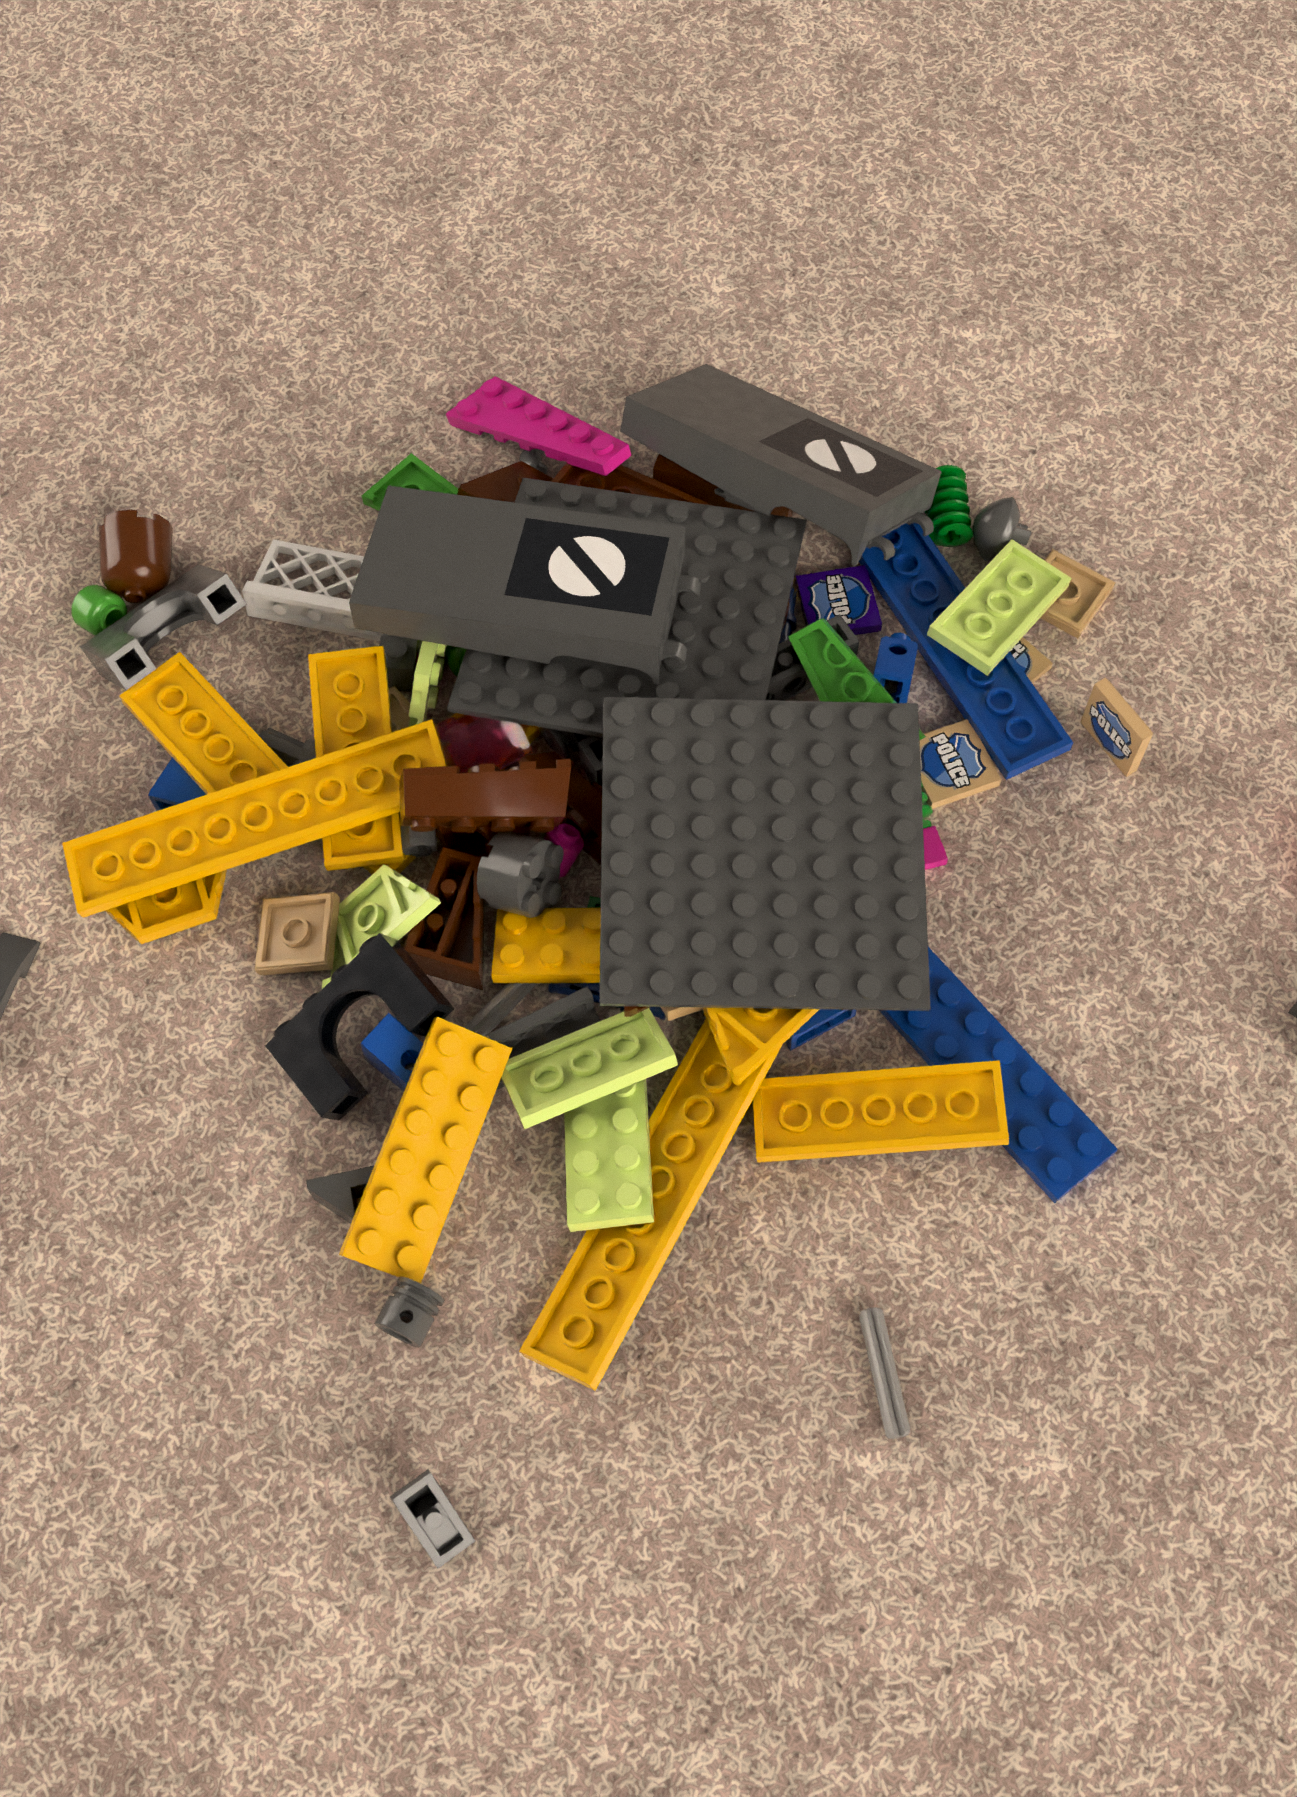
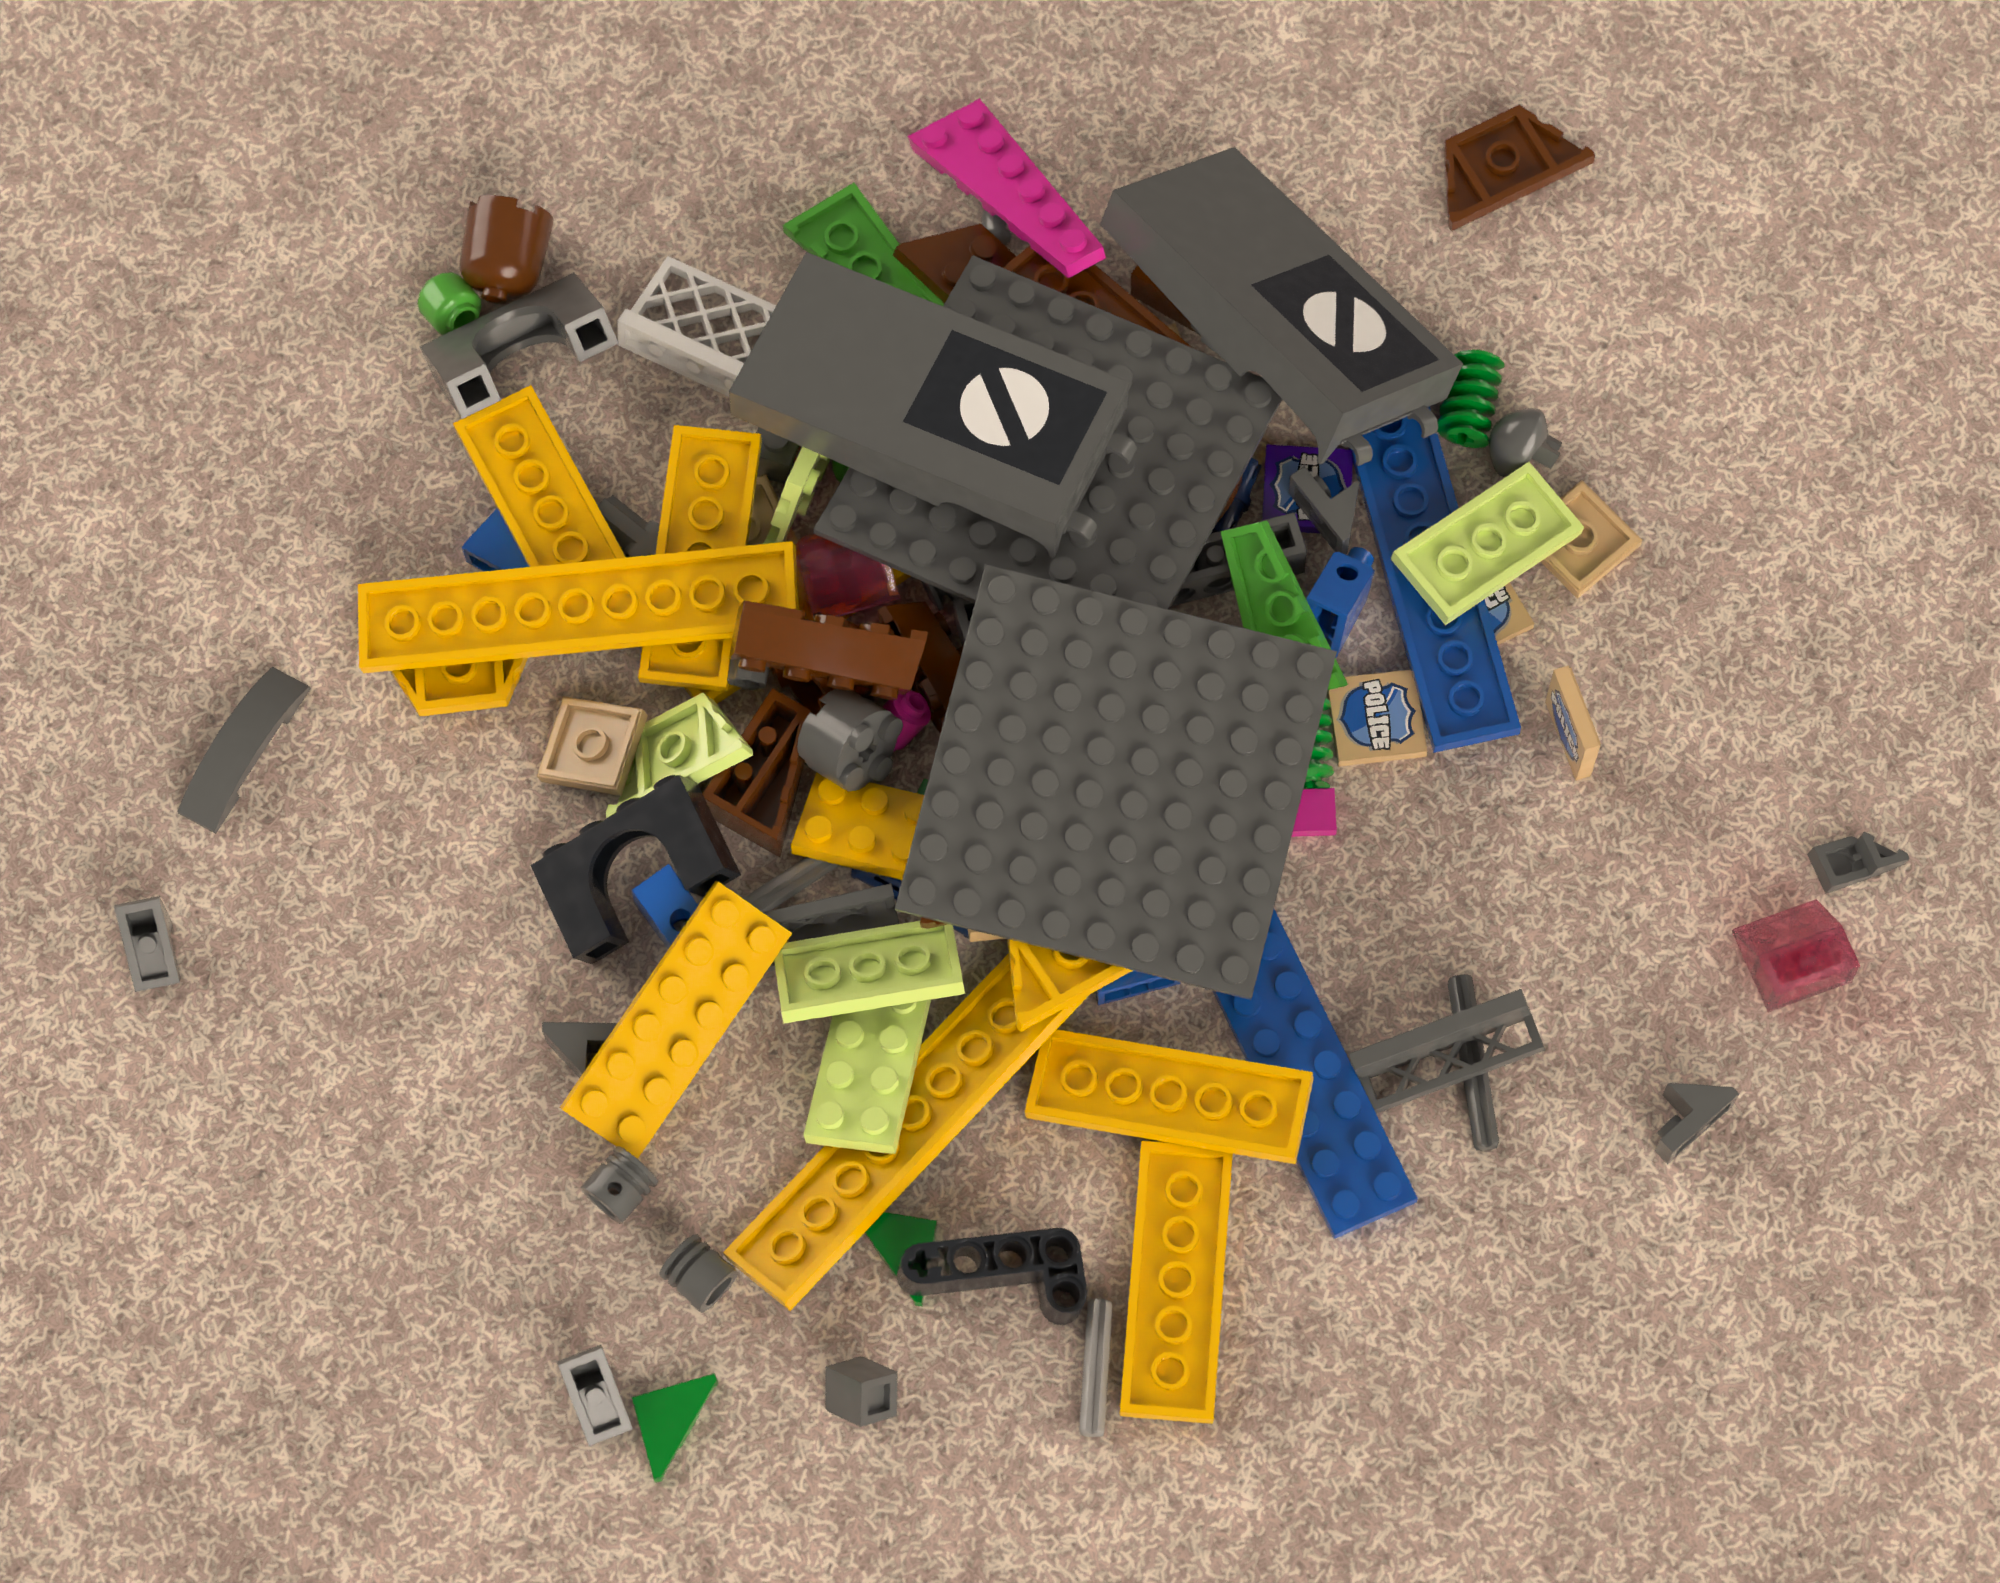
camera: 15 degrees right, 5 degrees up
(501, 1376) = (698, 1273): none -> dark grey piece
(505, 1522) = (668, 1418): none -> green tile
(679, 1449) = (861, 1391): none -> dark grey panel
(683, 1306) = (896, 1233): none -> green tile
(769, 1307) = (993, 1273): none -> black beam
(864, 614) = (1329, 516): none -> dark grey slope
(914, 339) = (1505, 162): none -> reddish brown wing
(934, 1279) = (1176, 1283): none -> yellow plate
(1096, 1003) = (1443, 1035): none -> dark grey fence
(1124, 1023) = (1478, 1088): none -> dark grey axle

